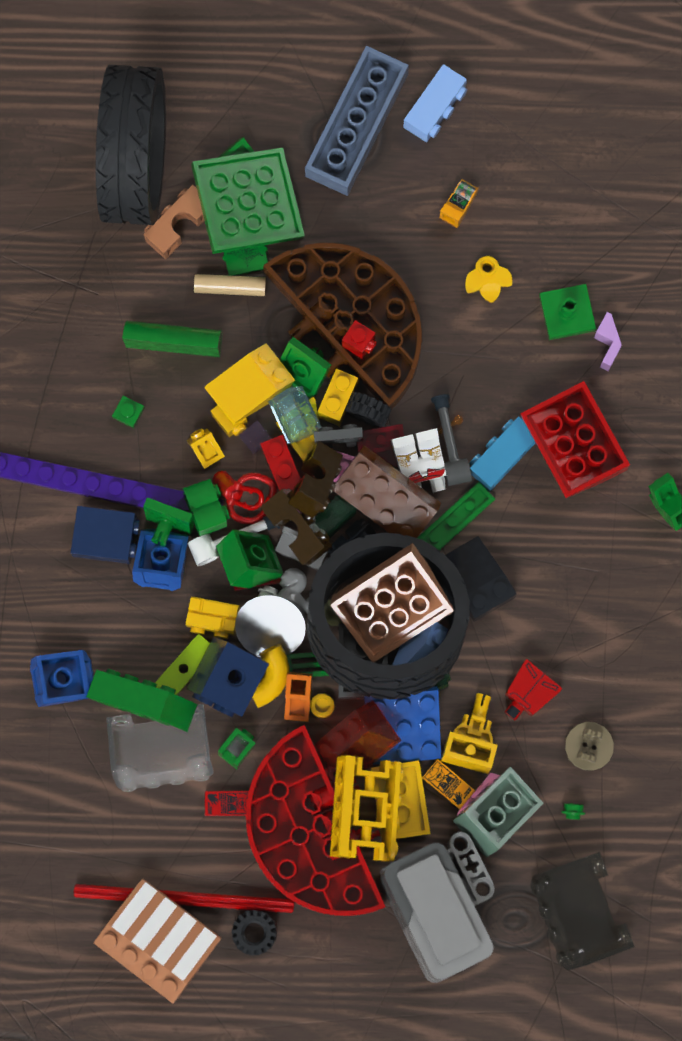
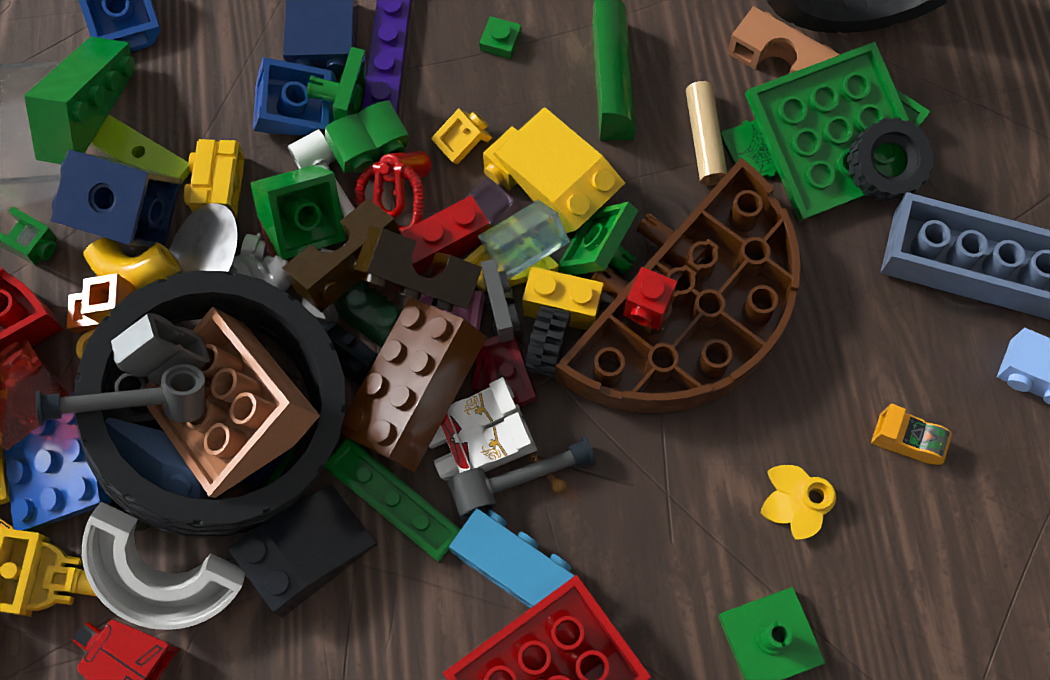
camera: 80 degrees right, 10 degrees down
(287, 157) = (915, 146): none -> black tyre
(362, 632) = (155, 346): none -> dark grey brick
(392, 628) = (180, 393): none -> dark grey piece
(497, 664) = (145, 594): none -> white brick

